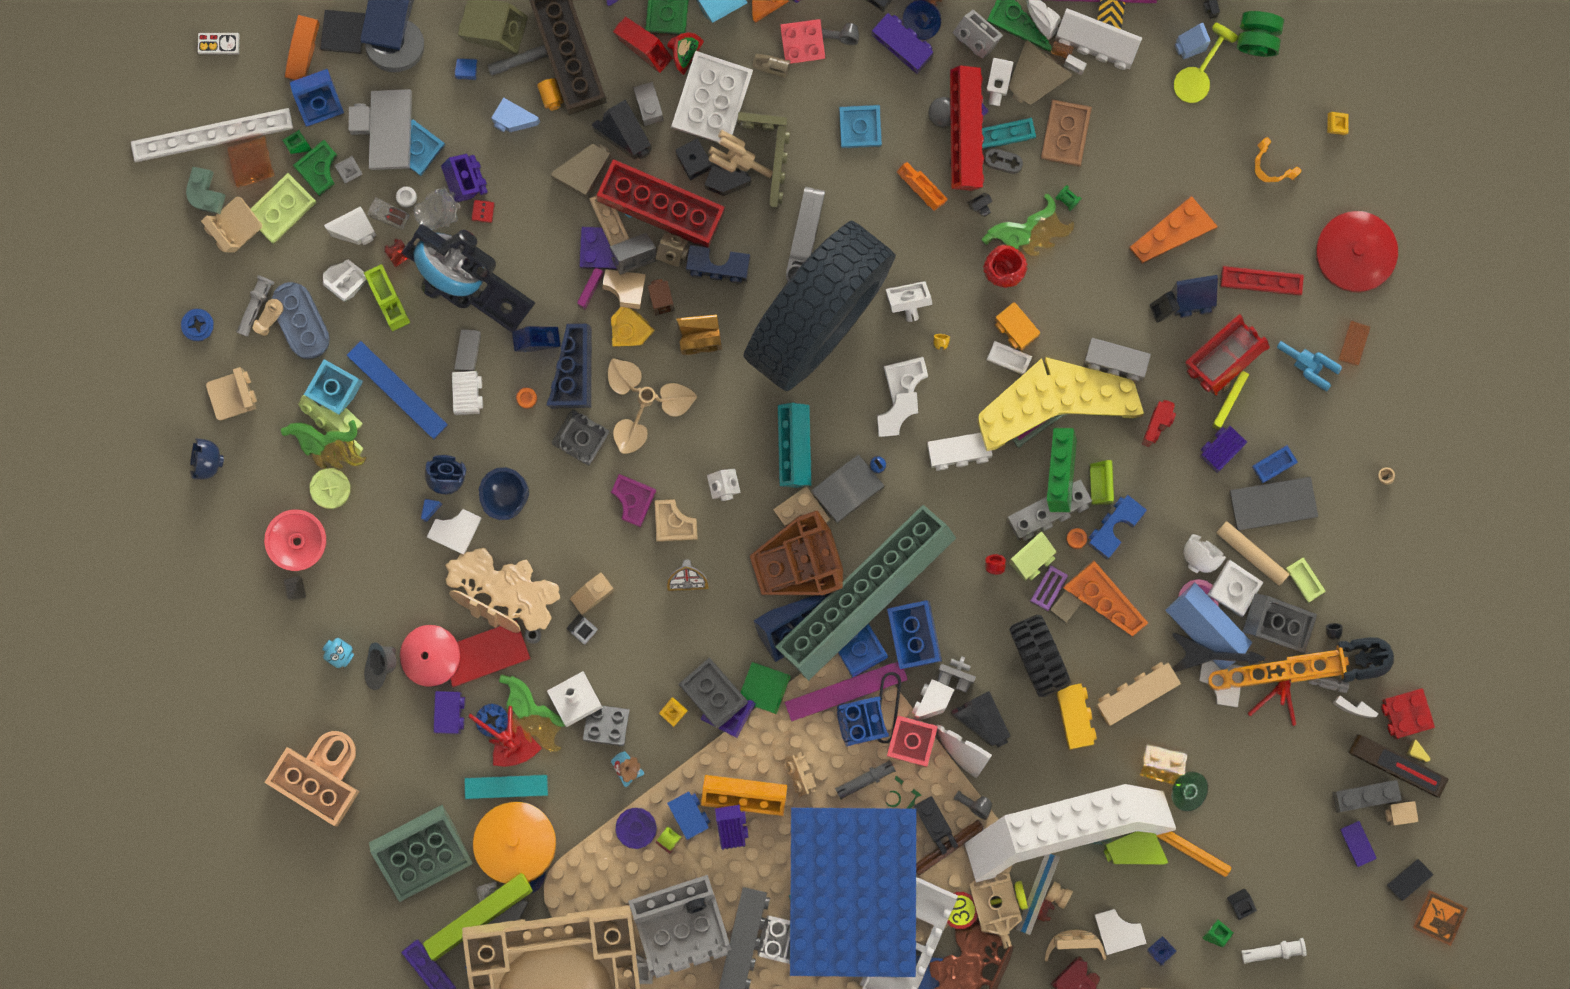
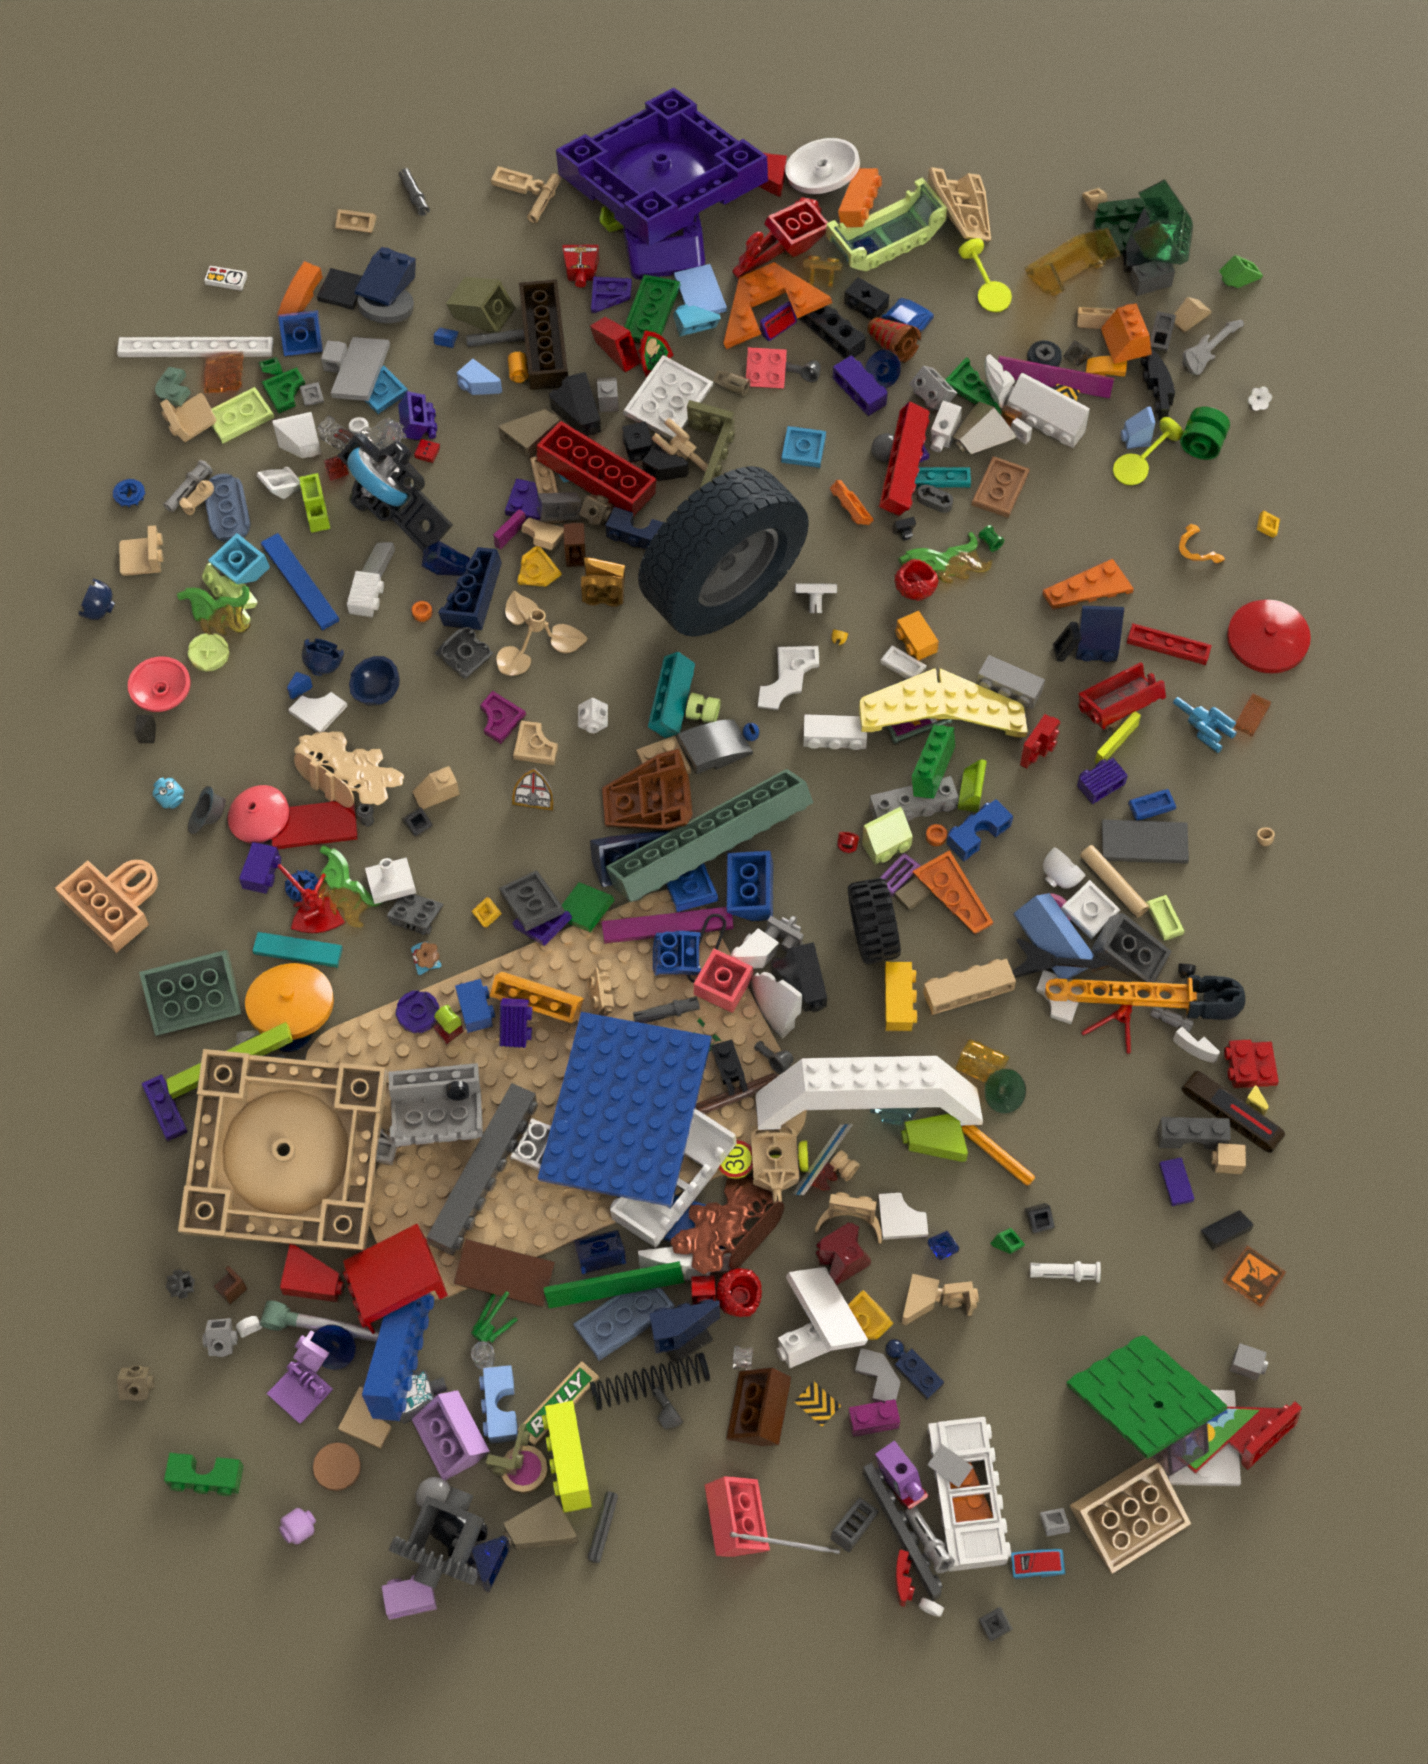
camera: 10 degrees right, 20 degrees down
(827, 453) = (710, 708): none -> yellowish green wheel

